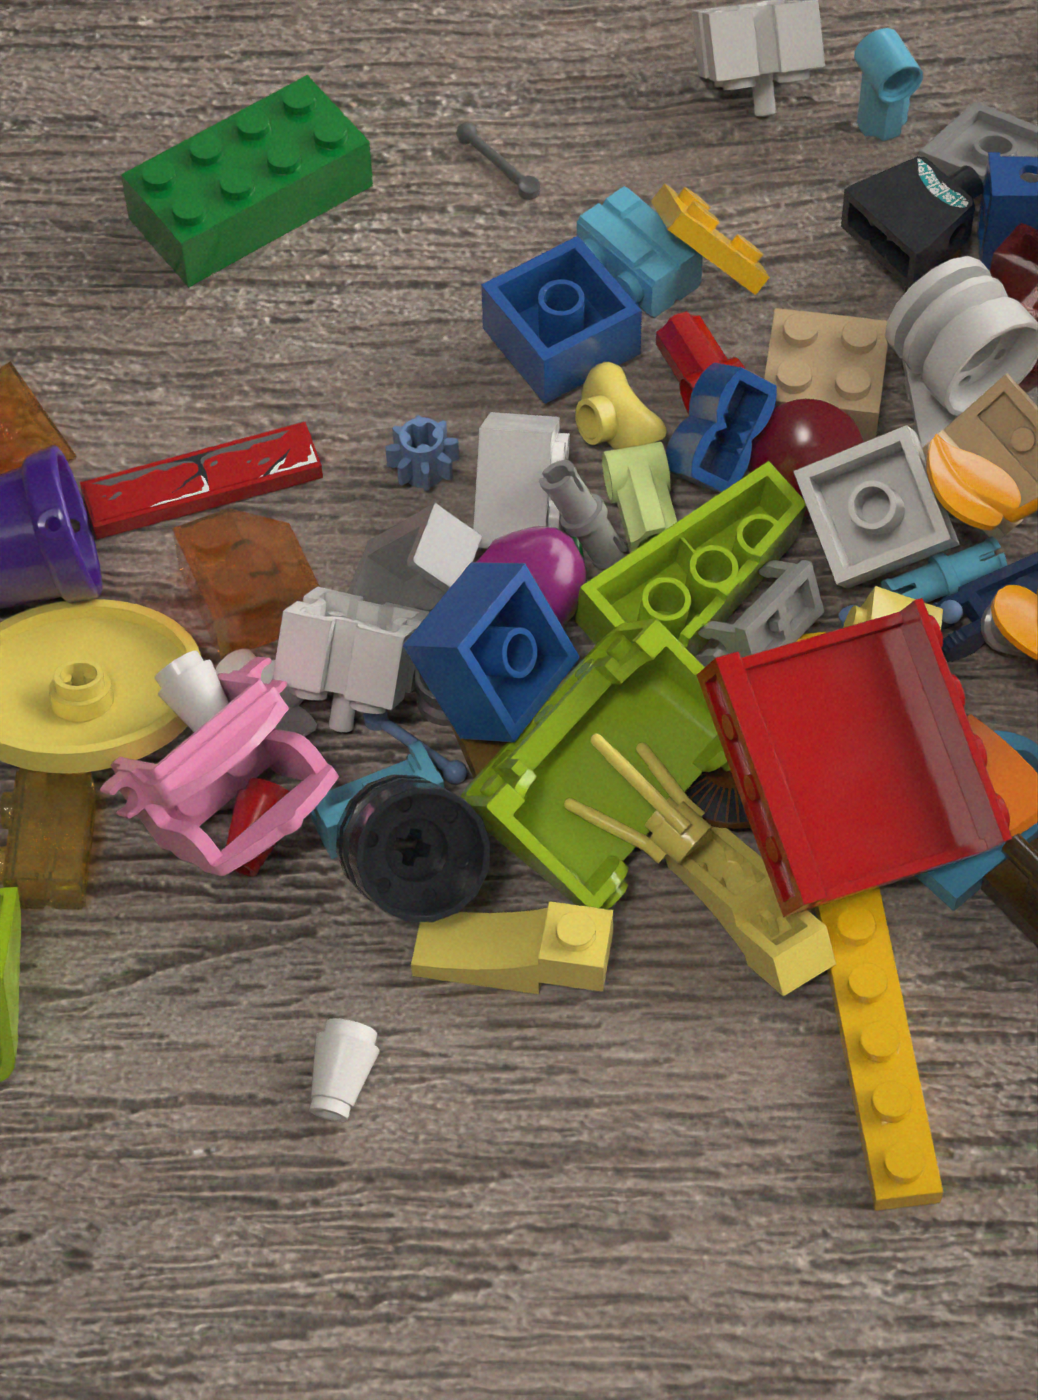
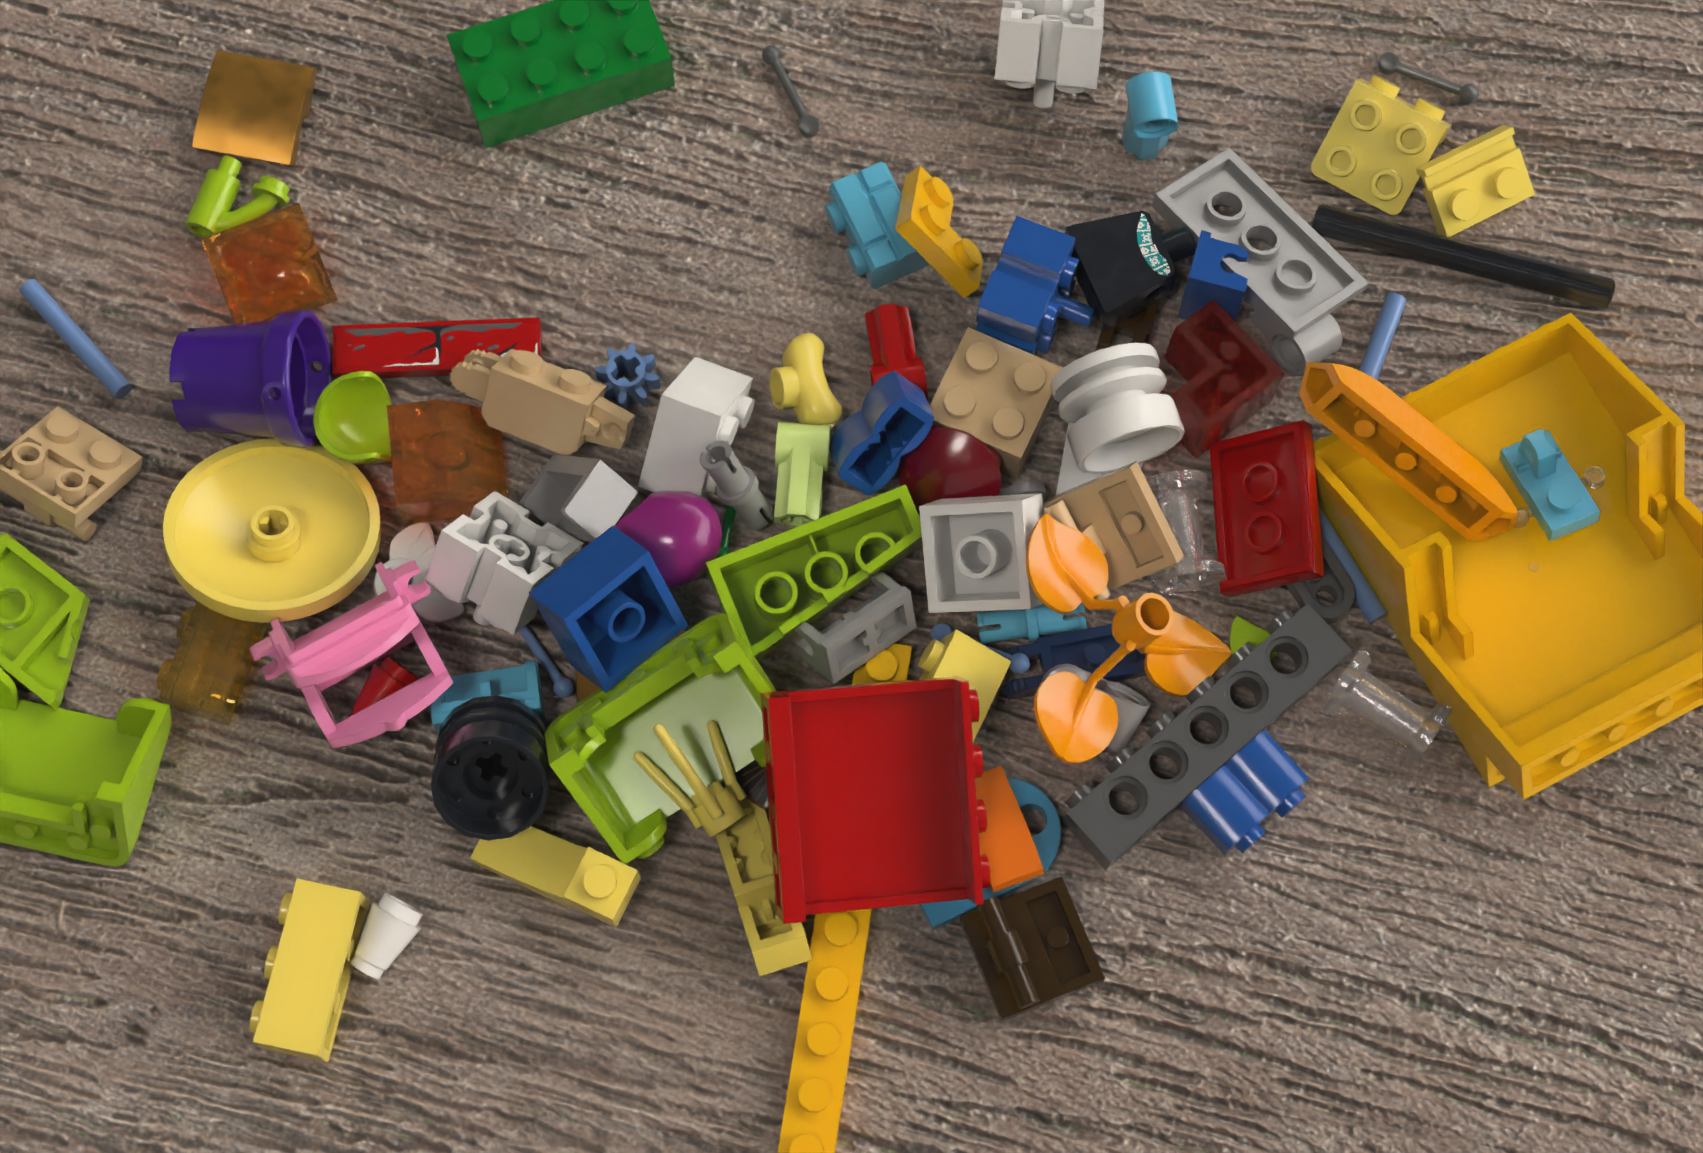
camera: 15 degrees right, 15 degrees up
(135, 557) = (354, 419): none -> lime helmet
(191, 689) = (353, 580): white cone -> none
(264, 1127) = (309, 970): none -> light yellow brick
(339, 491) = (542, 401): none -> tan hinge
(560, 318) = (784, 280): blue brick -> none
(823, 252) = (1031, 288): none -> blue brick

